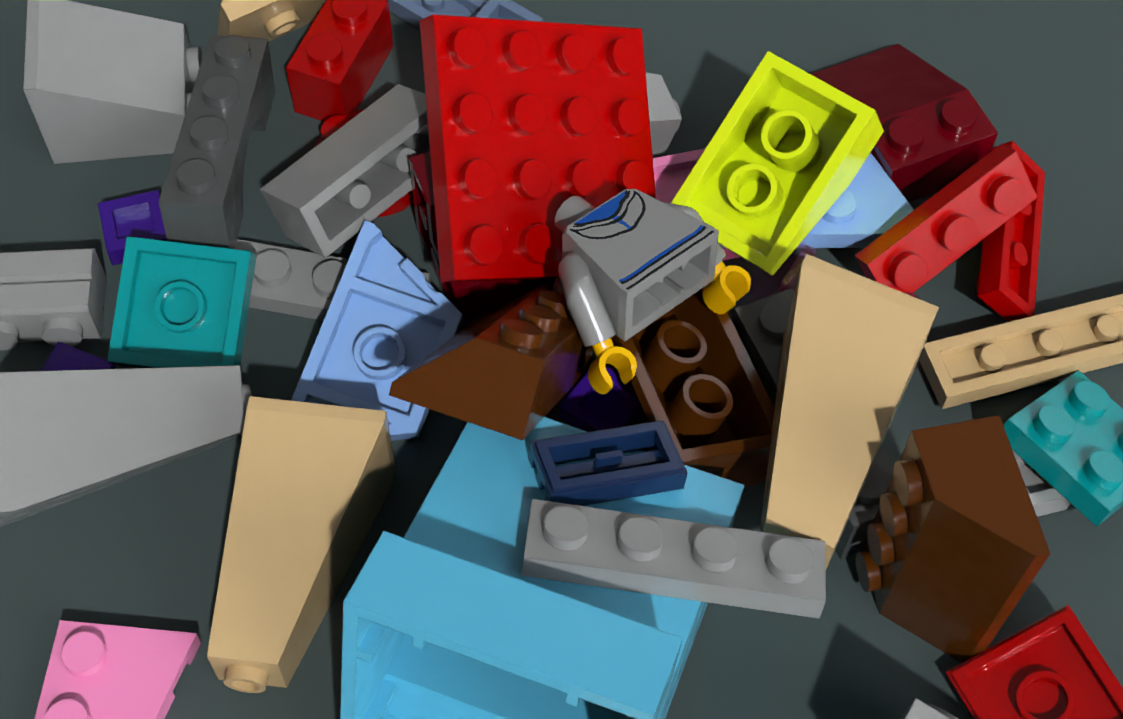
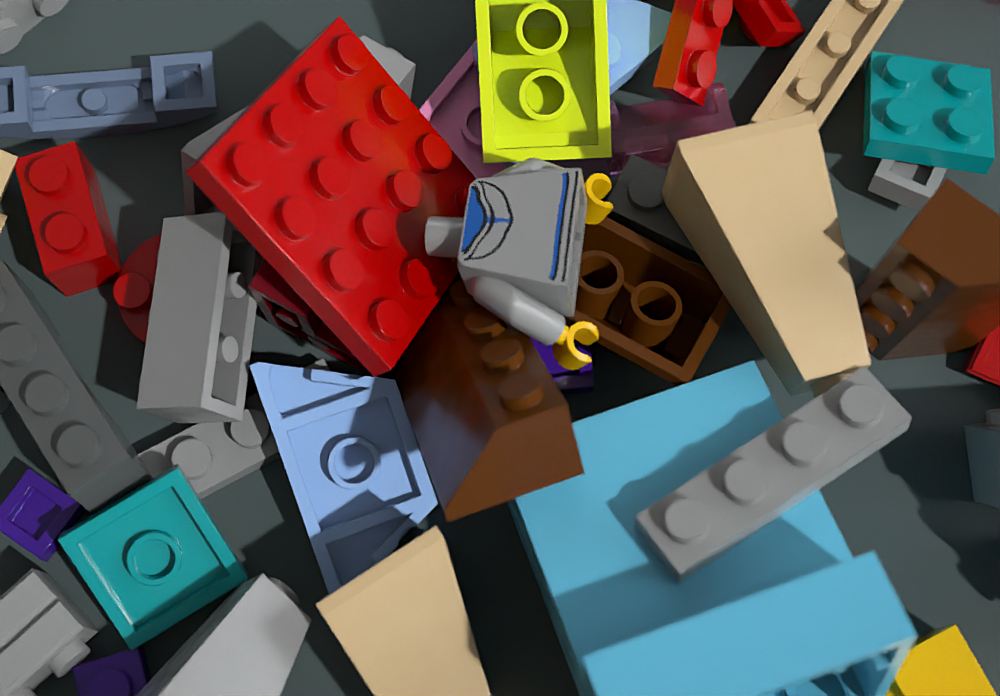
camera: 40 degrees left, 15 degrees up
(611, 473) = (622, 478): dark blue tile -> none

